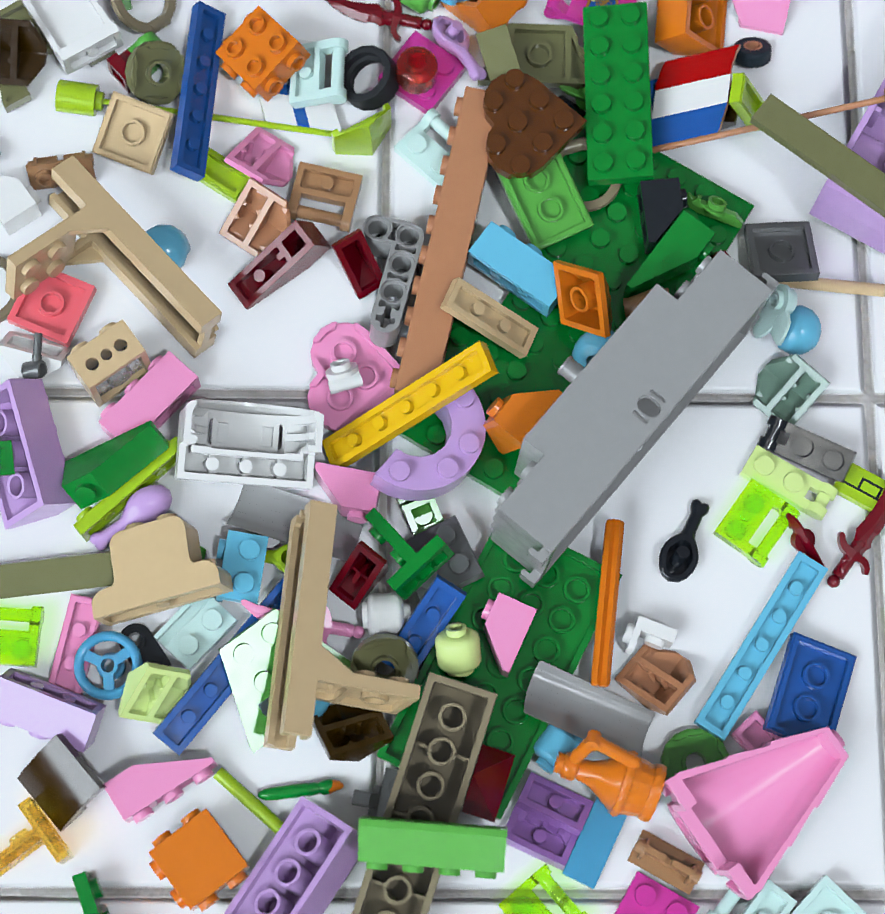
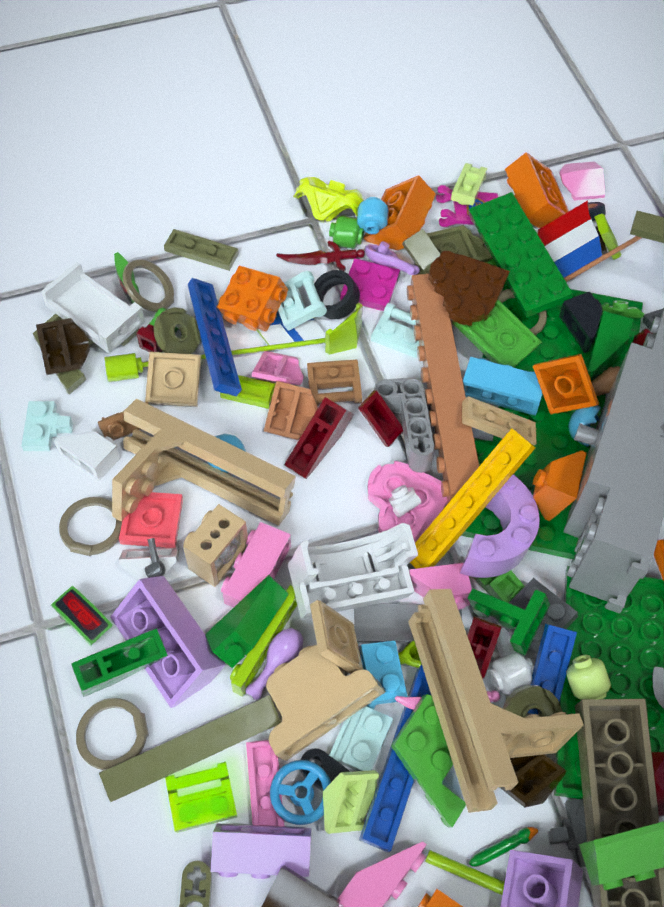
camera: 15 degrees left, 15 degrees down
(199, 515) = (335, 637): none -> tan plate
(416, 70) = (371, 276): clear red head -> none
(506, 628) = (618, 649): bright pink slope -> none

